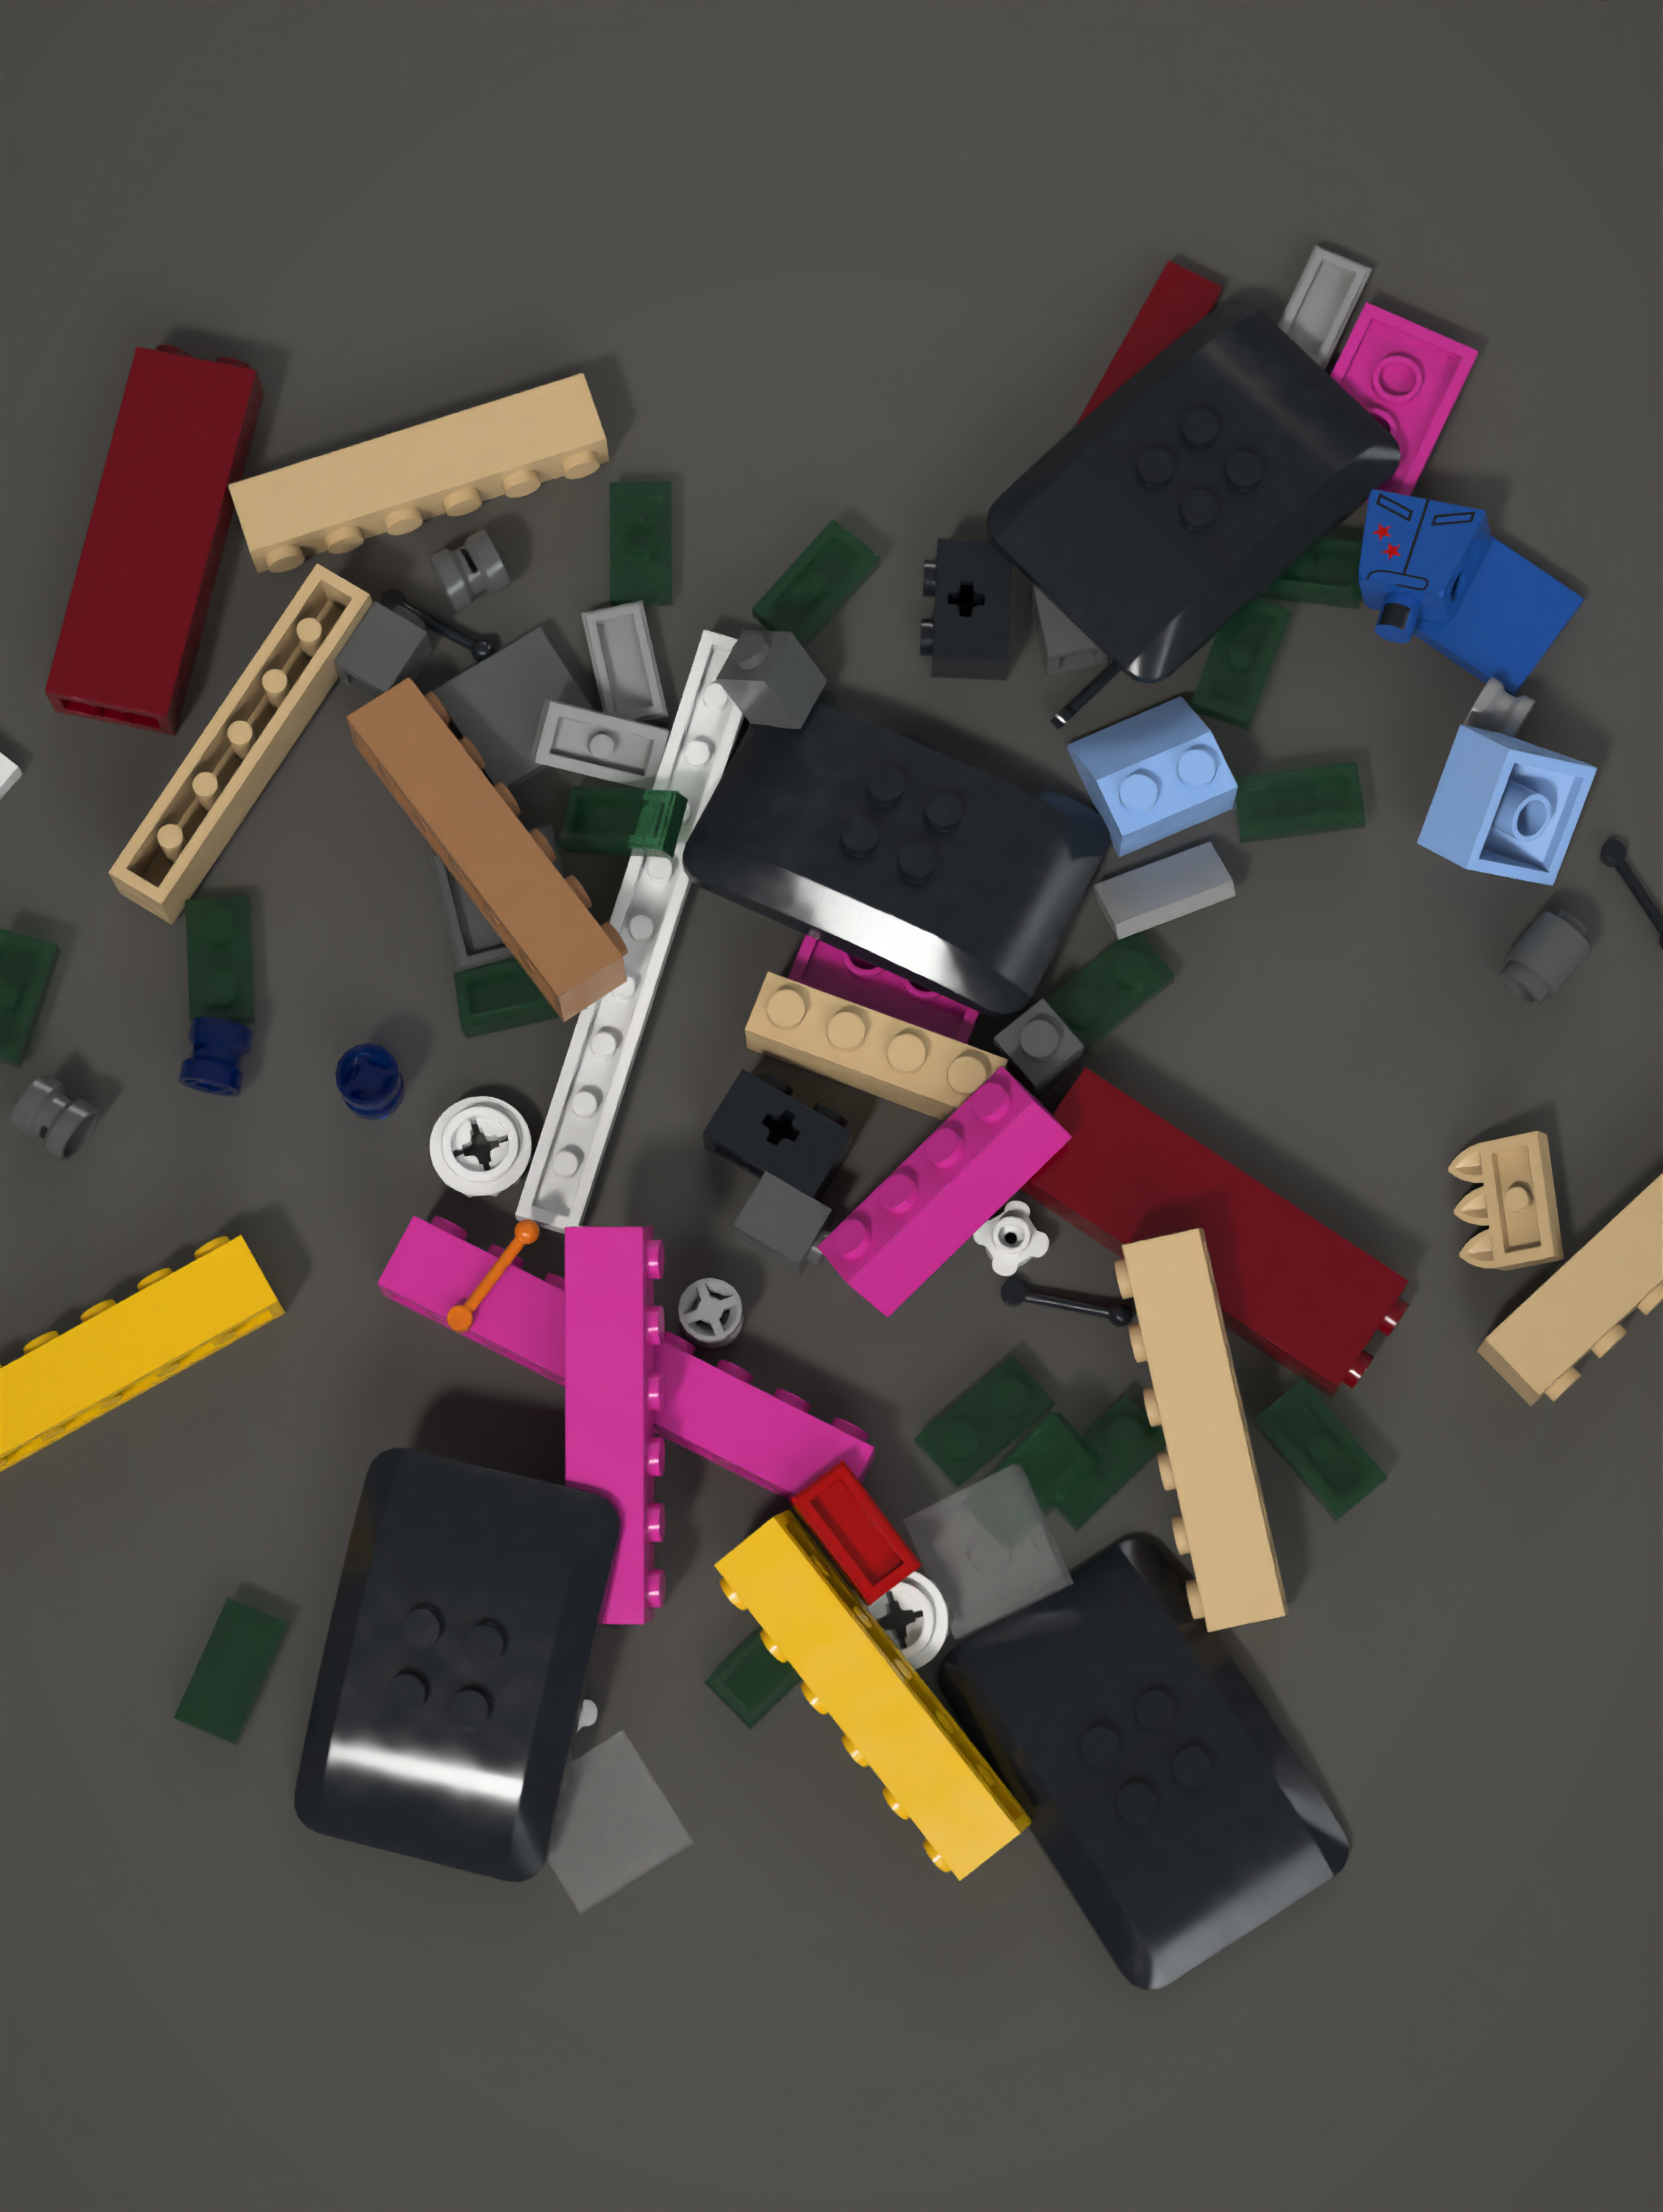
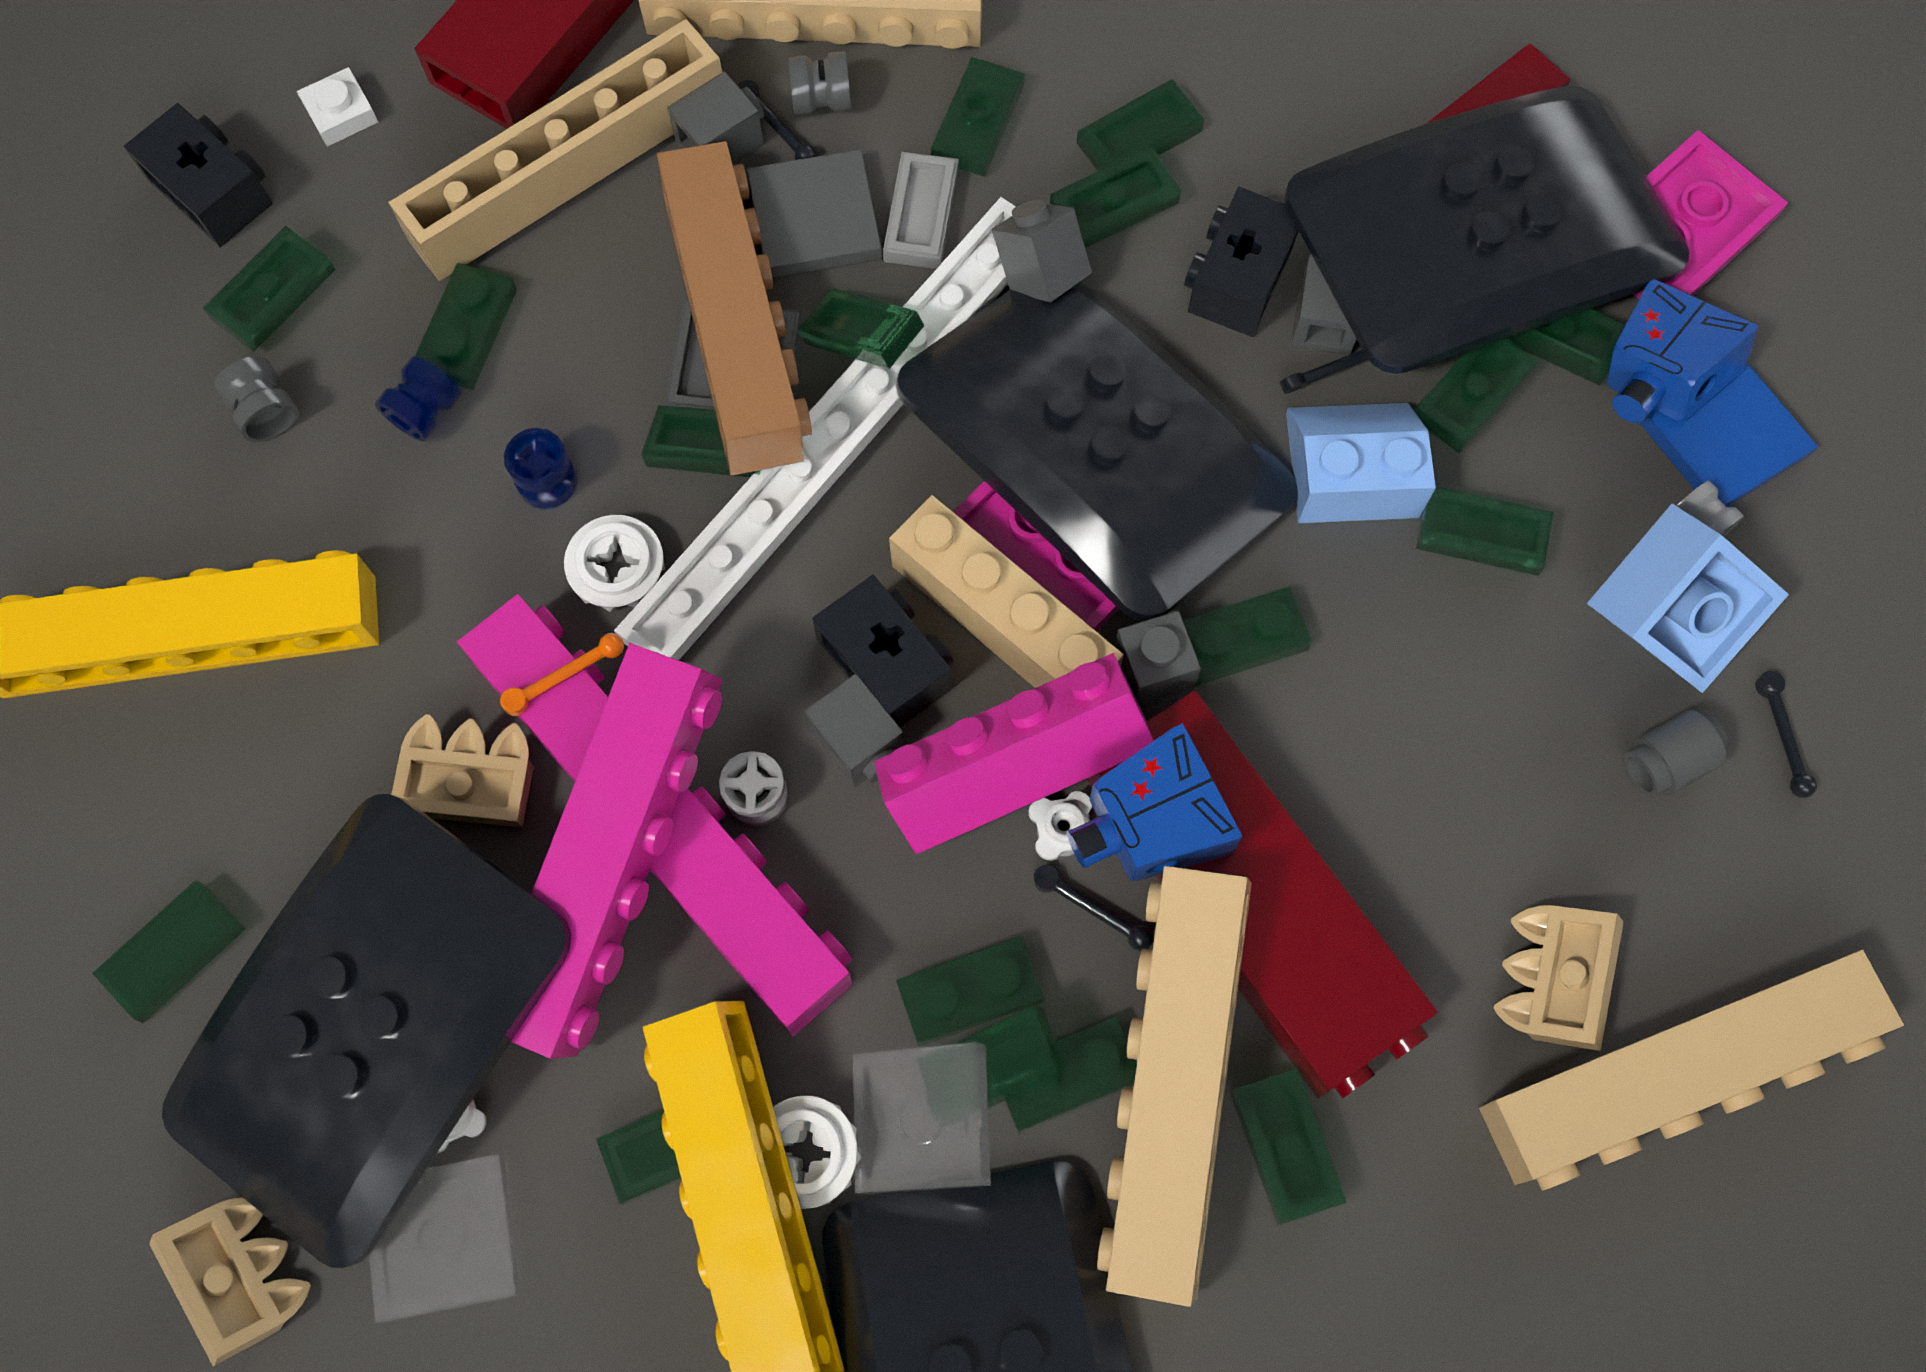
camera: 20 degrees right, 5 degrees down
(429, 1928) = (222, 1277): none -> tan plate
(434, 1409) = (462, 779): none -> tan plate
(599, 744) = (867, 255): light grey plate -> none
(811, 497) = (1154, 119): none -> clear green tile
(855, 1533) = (794, 1049): red tile -> none
(1095, 1198) = (1157, 812): none -> blue torso
(1164, 890) = (1330, 563): light grey tile -> none
(1324, 303) = (1660, 121): light grey tile -> none

